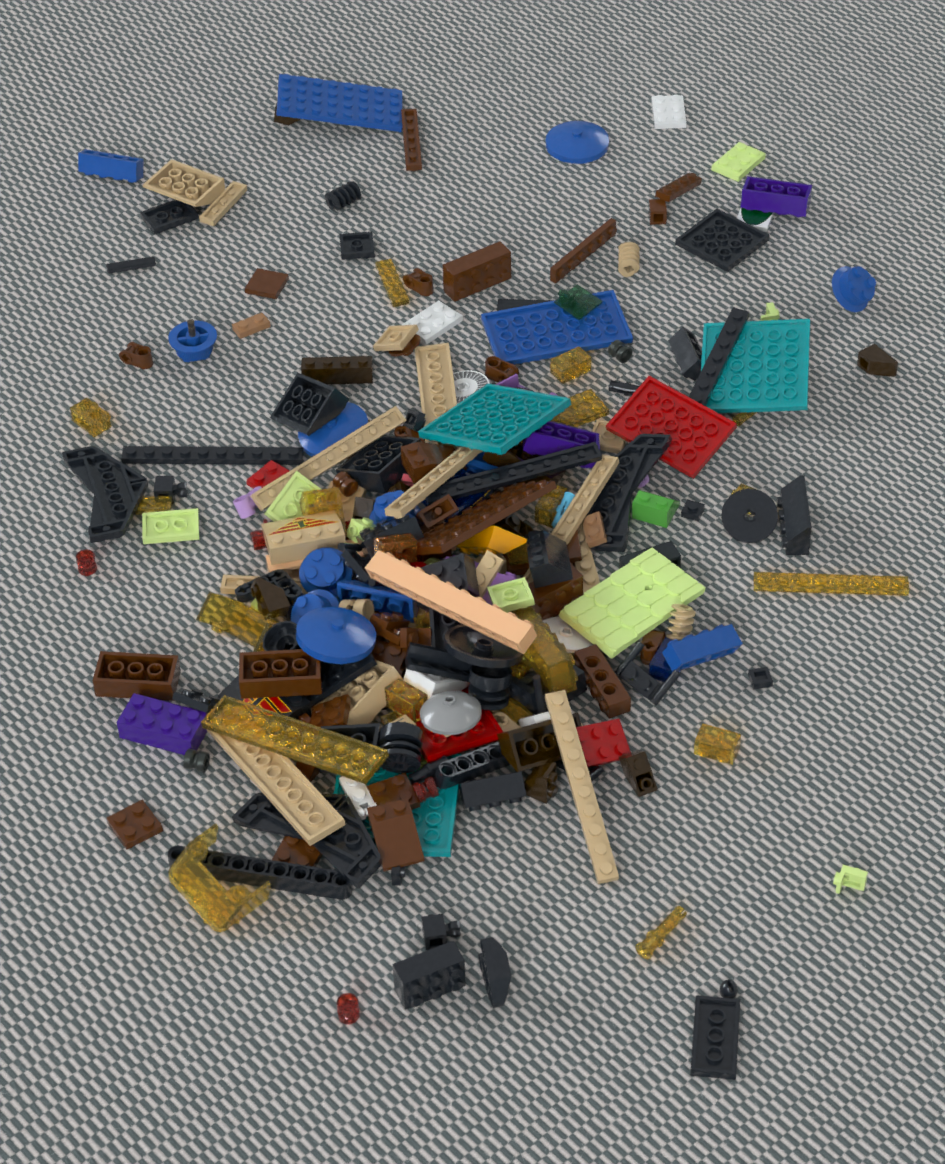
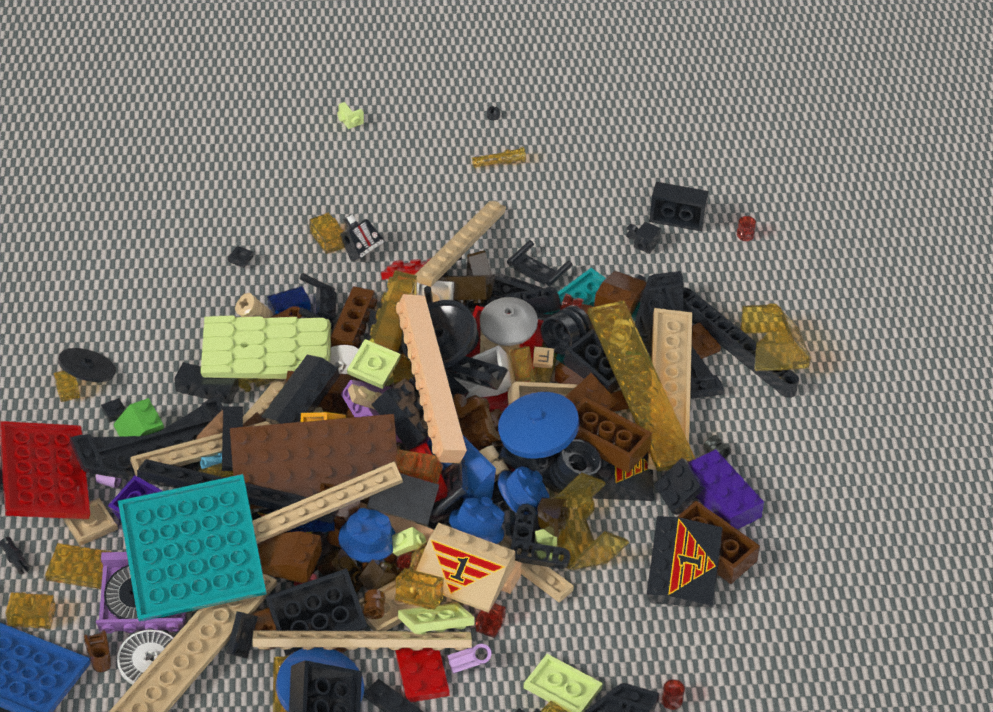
camera: 145 degrees left, 0 degrees up
(134, 824) = (801, 436): reddish brown plate -> none
(145, 634) = (684, 562): none -> black slope
(495, 971) = (640, 178): black connector -> none
(505, 831) = (534, 268): none -> black plate
(567, 514) = (231, 419): none -> black tile
(638, 772) = (402, 247): dark brown slope -> none
(678, 747) = (359, 237): none -> torso
(702, 647) = (261, 283): blue brick -> none
(715, 1037) = (529, 98): black tile -> none
(794, 517) = (63, 330): black slope -> none
(831, 583) = (98, 291): clear yellow plate -> none

